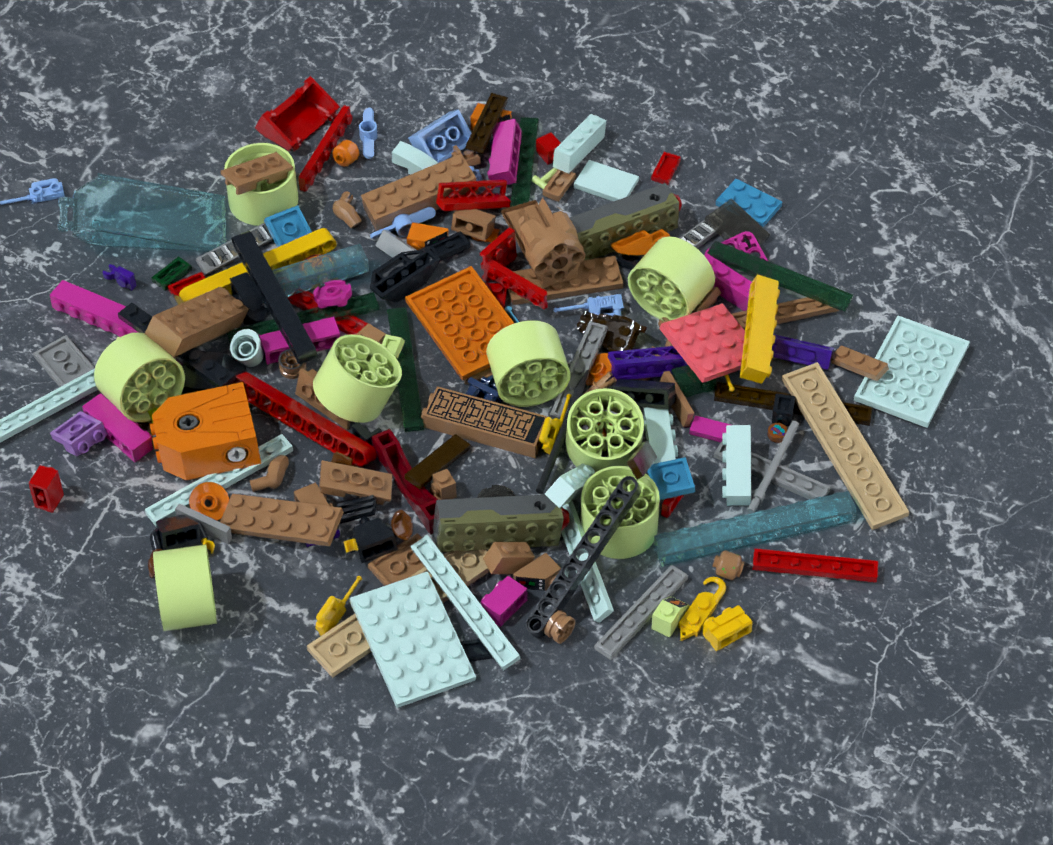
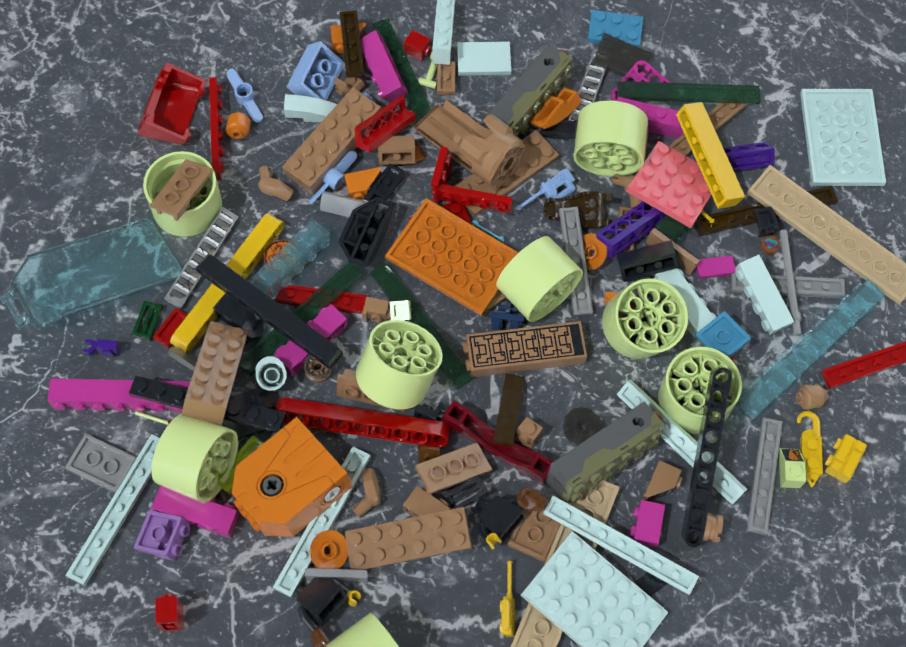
camera: 30 degrees left, 15 degrees up
(287, 225) = (232, 227): dark azure plate -> none
(332, 294) = (321, 286): dark pink plate -> none
(508, 557) = (631, 481): medium nougat brick -> none
(551, 427) = (591, 331): yellow piece -> none
(569, 485) = (650, 387): light aqua brick -> none
(578, 392) = (594, 303): black piece -> none
(602, 383) = (603, 271): medium nougat axle -> none
(642, 460) = (703, 339): dark brown tile -> none
(665, 168) = (526, 23): red tile -> none
(859, 363) = (800, 149): medium nougat plate -> none

